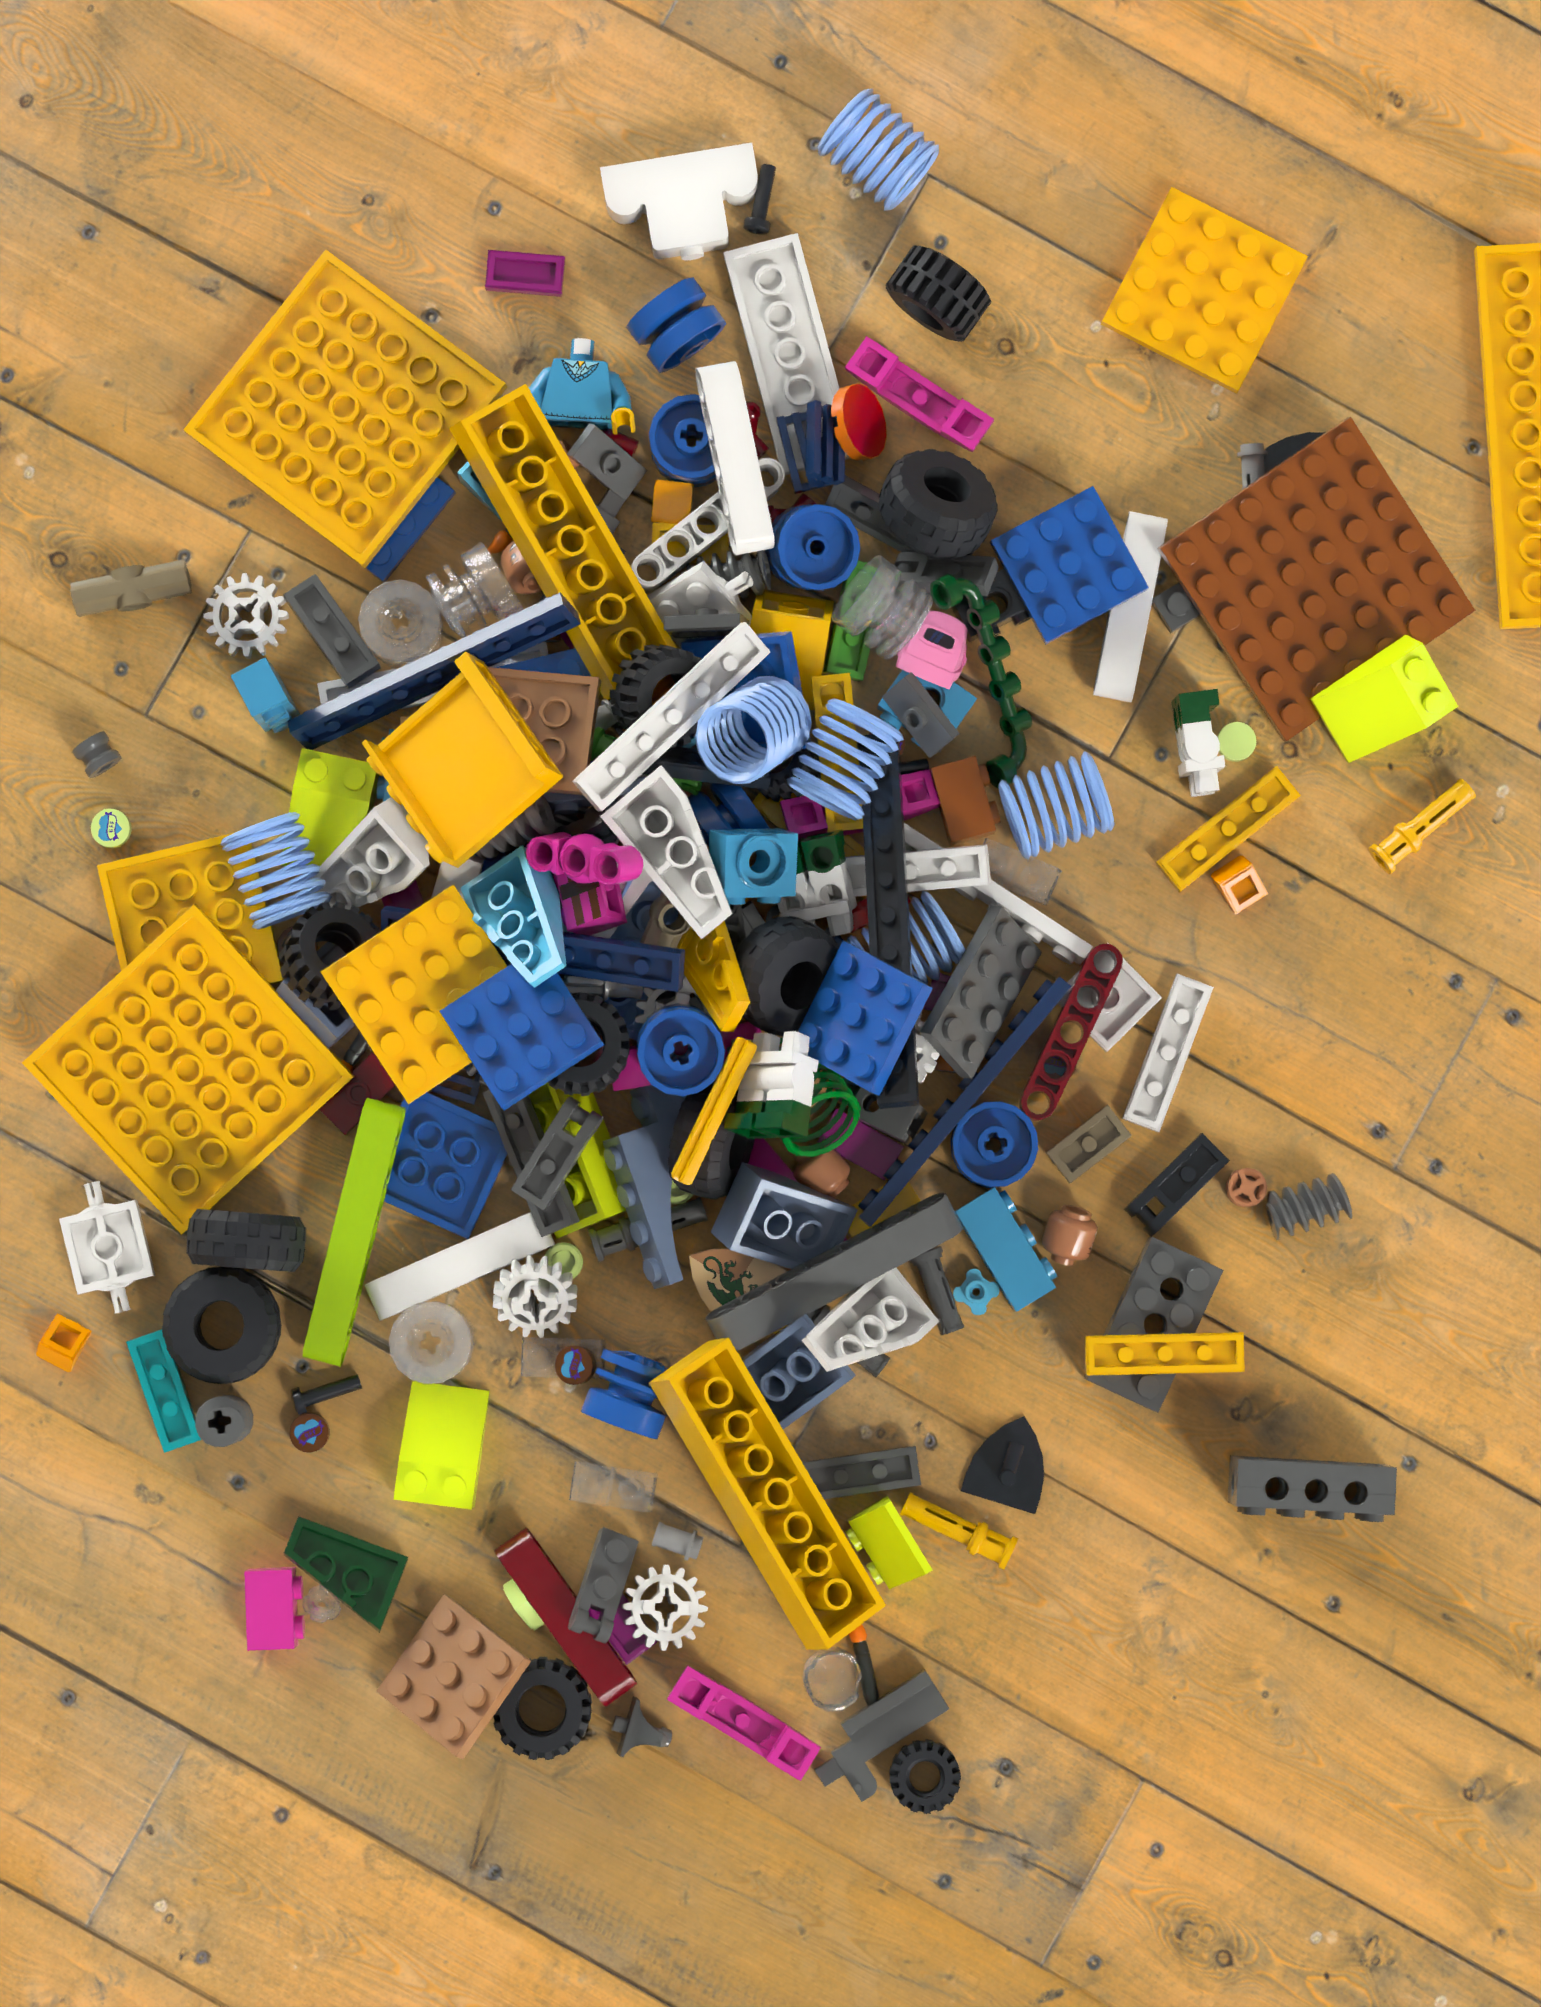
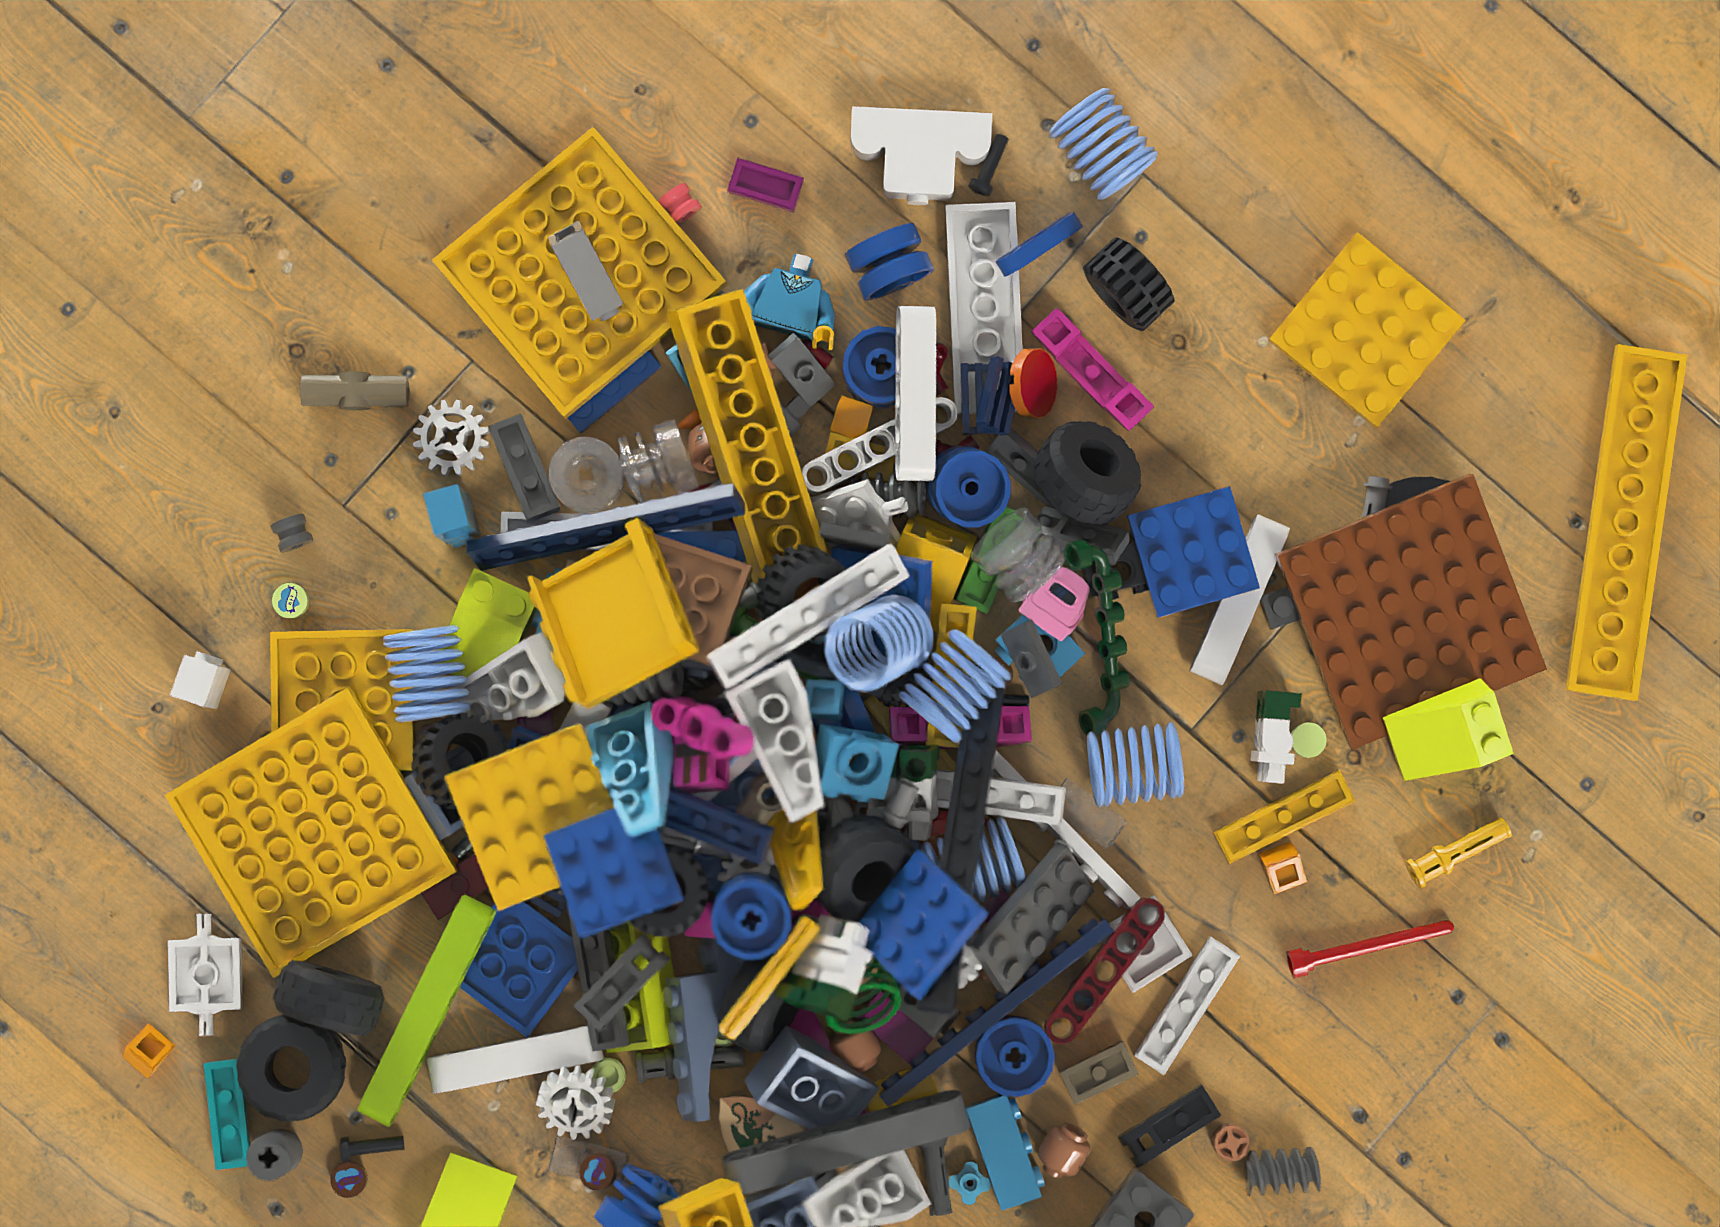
camera: 10 degrees right, 0 degrees up
(34, 931) = (201, 680): none -> white brick
(353, 404) = (586, 272): none -> light grey slope
(437, 311) = (680, 203): none -> coral wheel
(451, 1355) = (487, 1107): clear wheel -> none
(709, 802) = (825, 699): none -> dark azure plate
(814, 898) = (900, 804): none -> light grey pin
(832, 272) = (1039, 244): none -> blue beam
(964, 801) = (1054, 741): dark orange brick -> none
(1282, 978) = (1302, 962): none -> red piece

